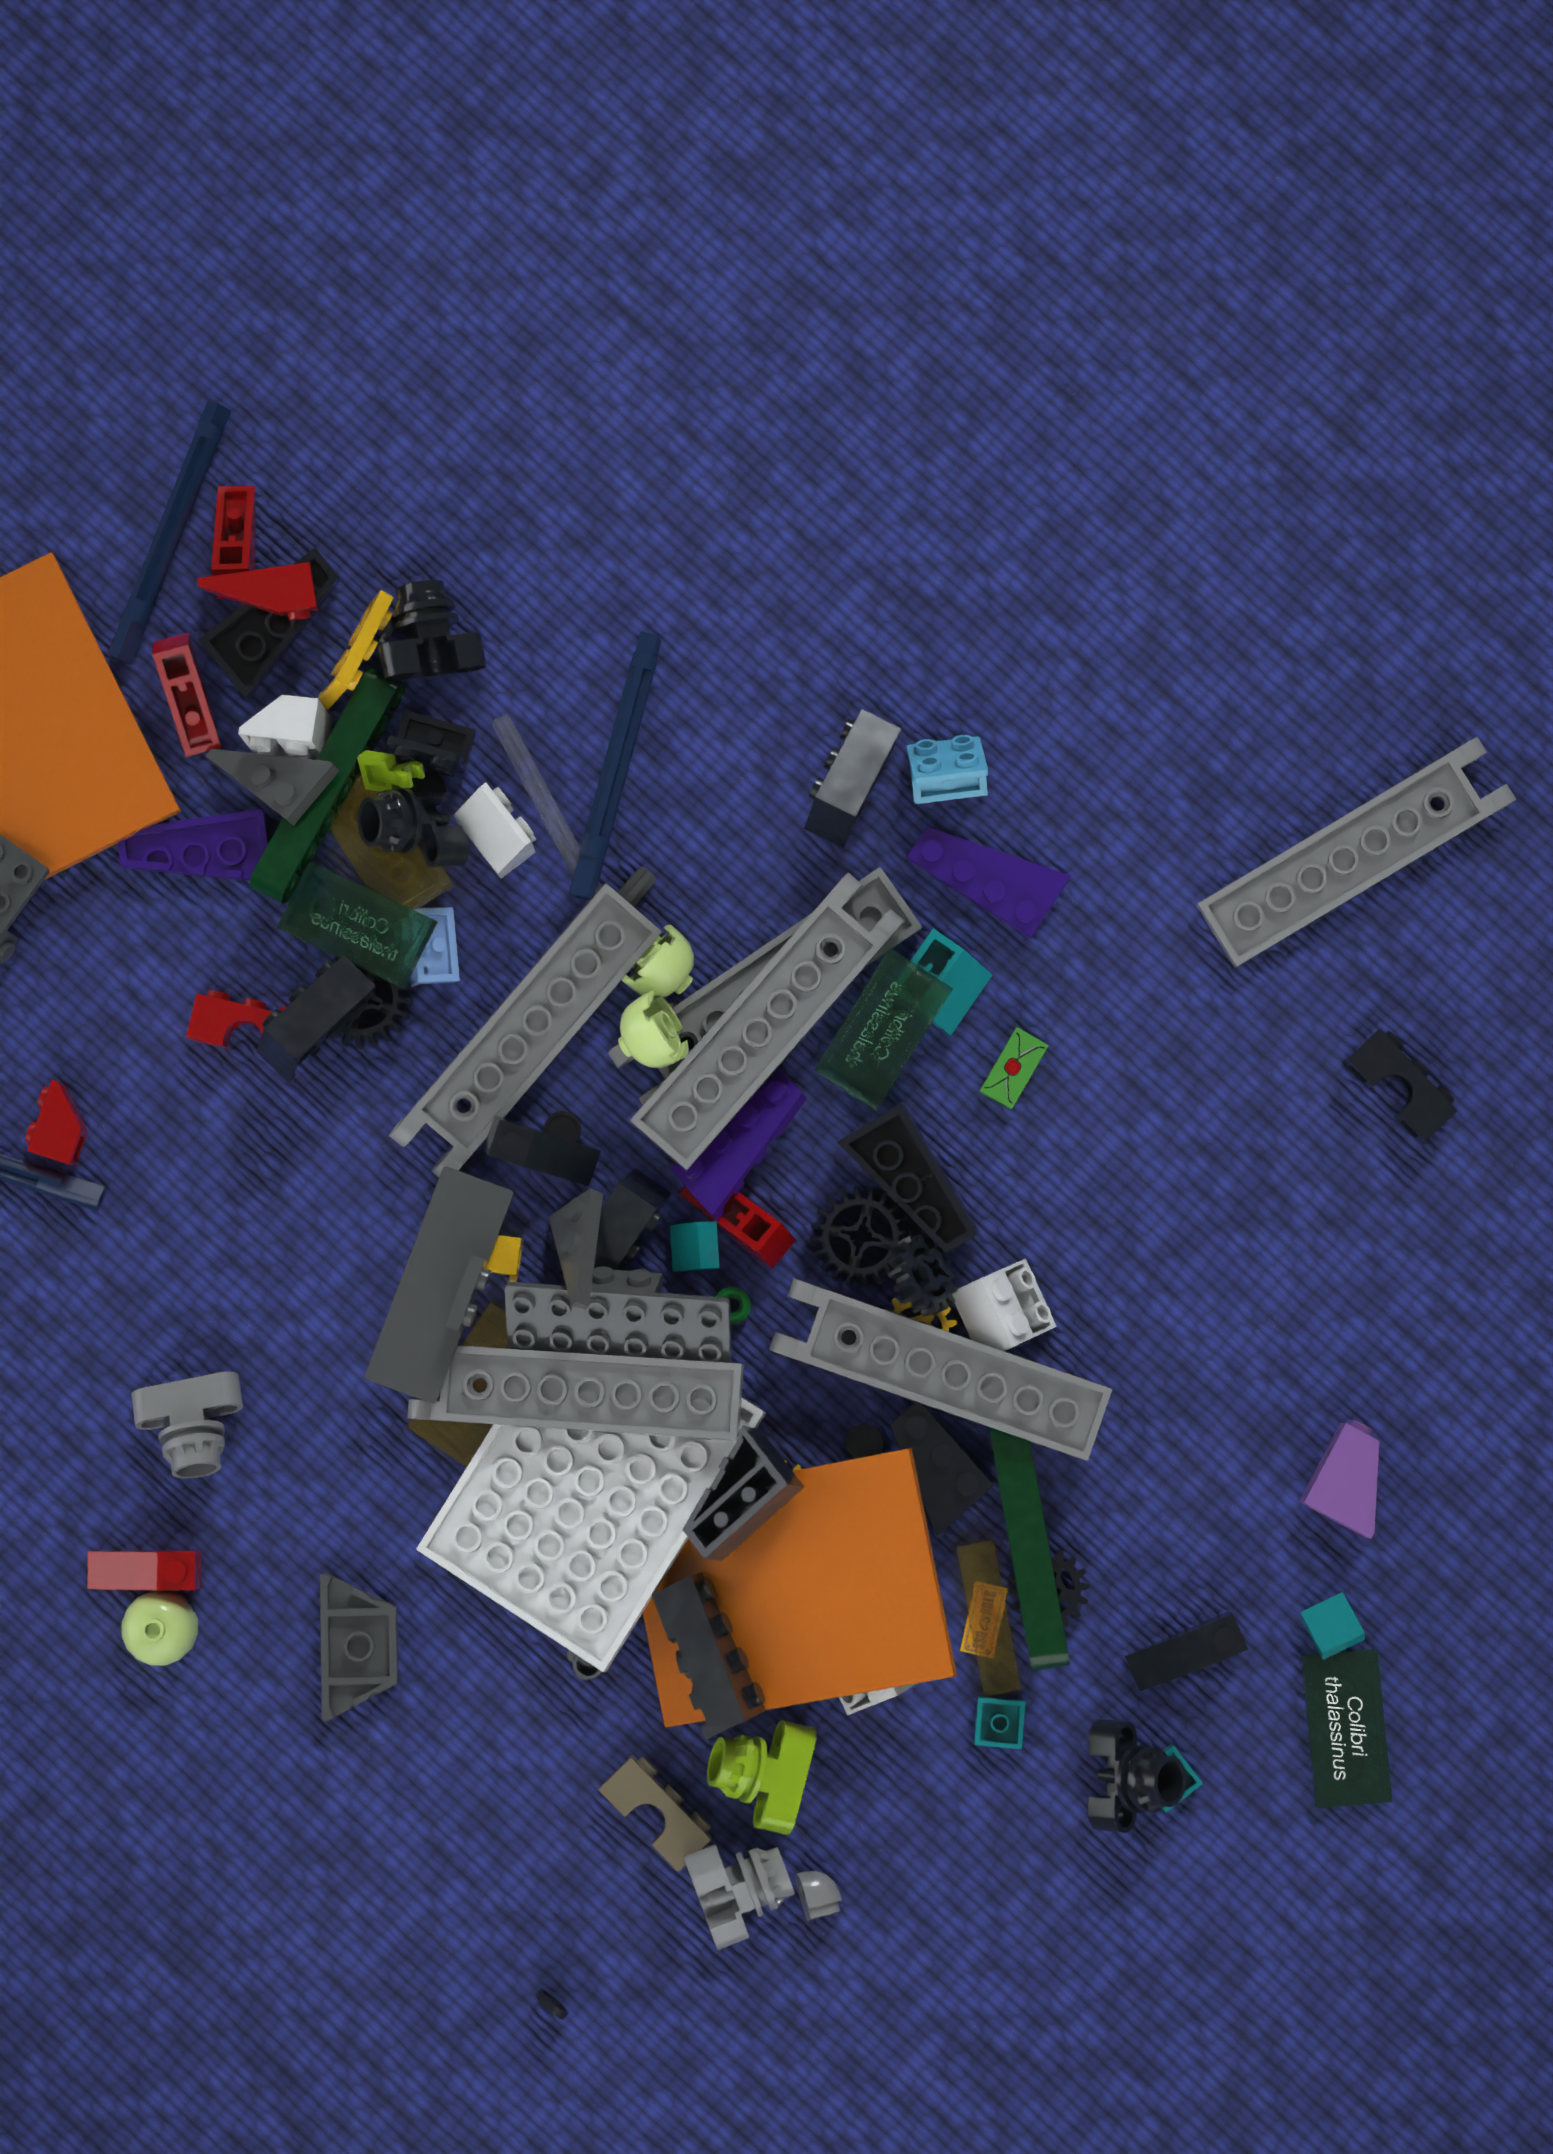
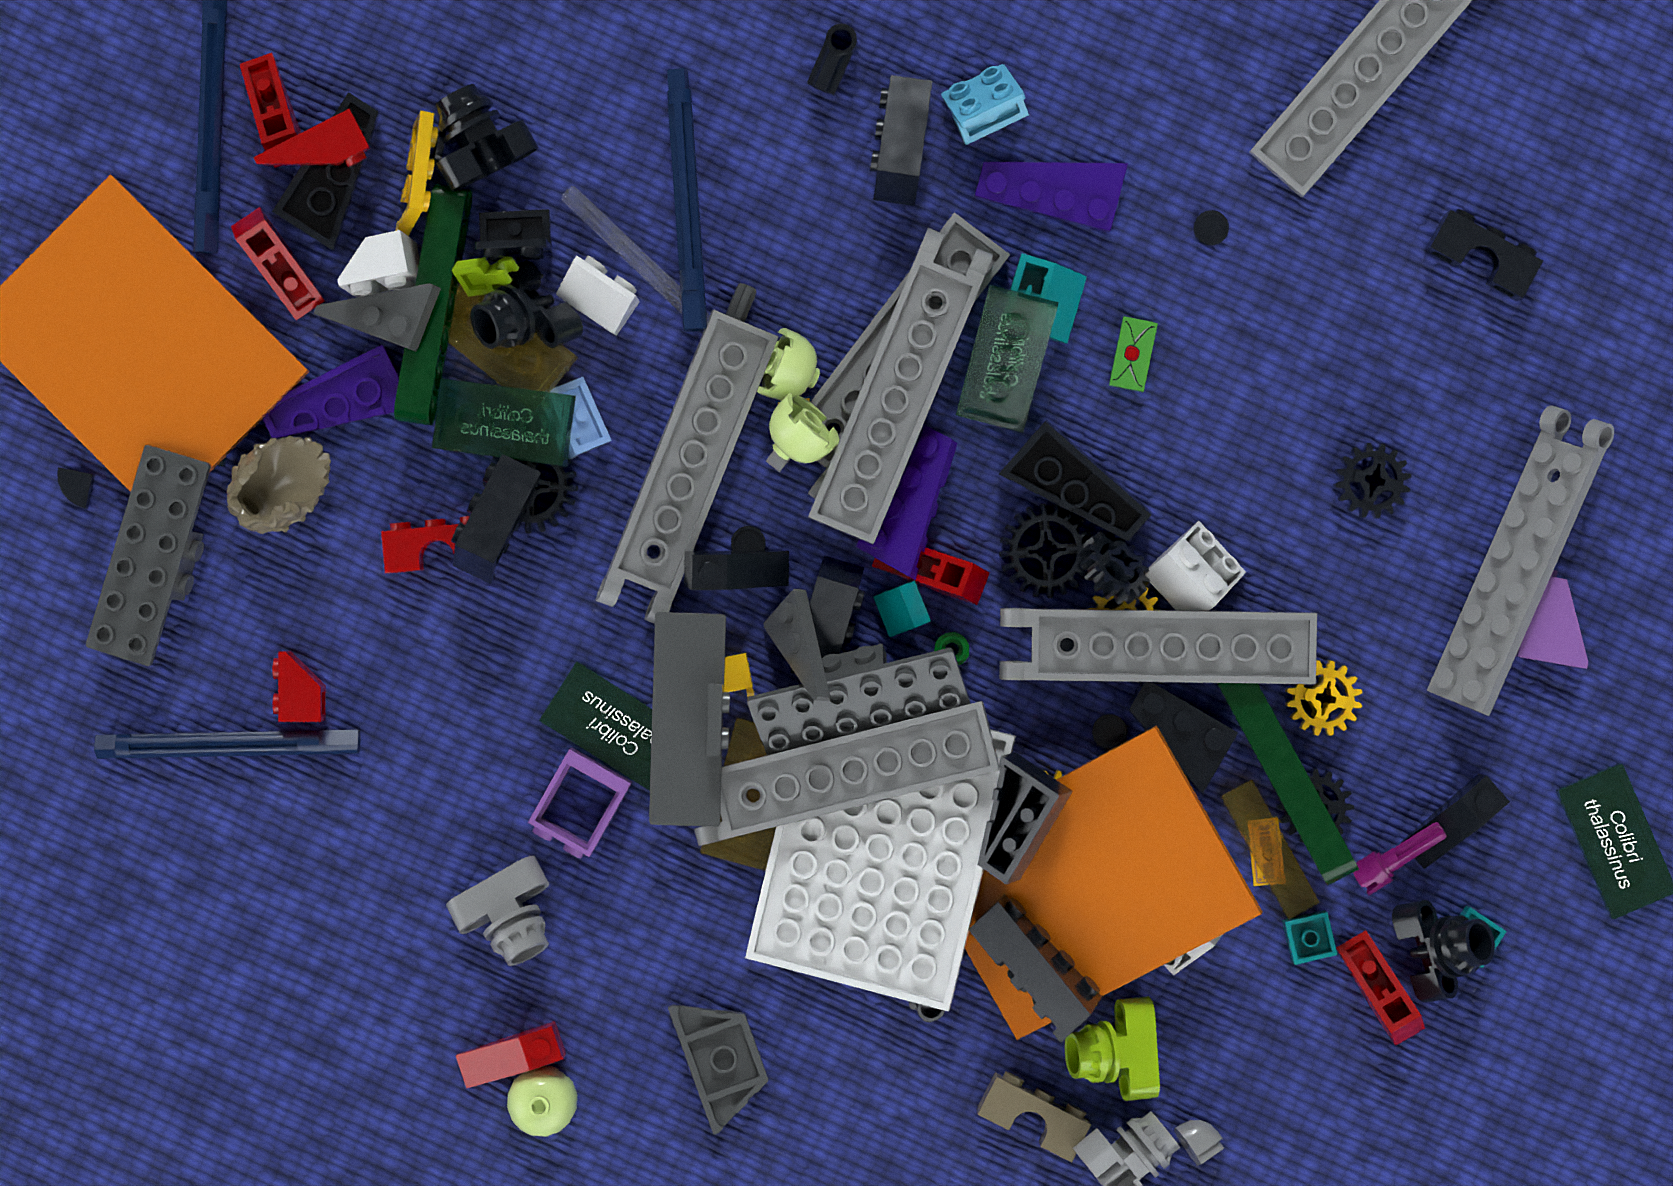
camera: 15 degrees left, 5 degrees up
(110, 912) = (278, 483): none -> dark tan hair
(333, 1311) = (597, 771): none -> medium lavender window
(354, 1261) = (603, 722): none -> clear green tile
(807, 678) = (832, 62): none -> black piece
(1055, 1799) = (1381, 988): none -> red slope
(1091, 1674) = (1378, 869): none -> magenta piece
(1108, 1489) = (1320, 714): none -> yellow gear
(1134, 968) = (1211, 227): none -> black piece
(1228, 1284) = (1387, 484): none -> black gear
(1332, 1625) = (1576, 755): teal piece -> none
(1336, 1408) = (1519, 562): none -> light grey hinge

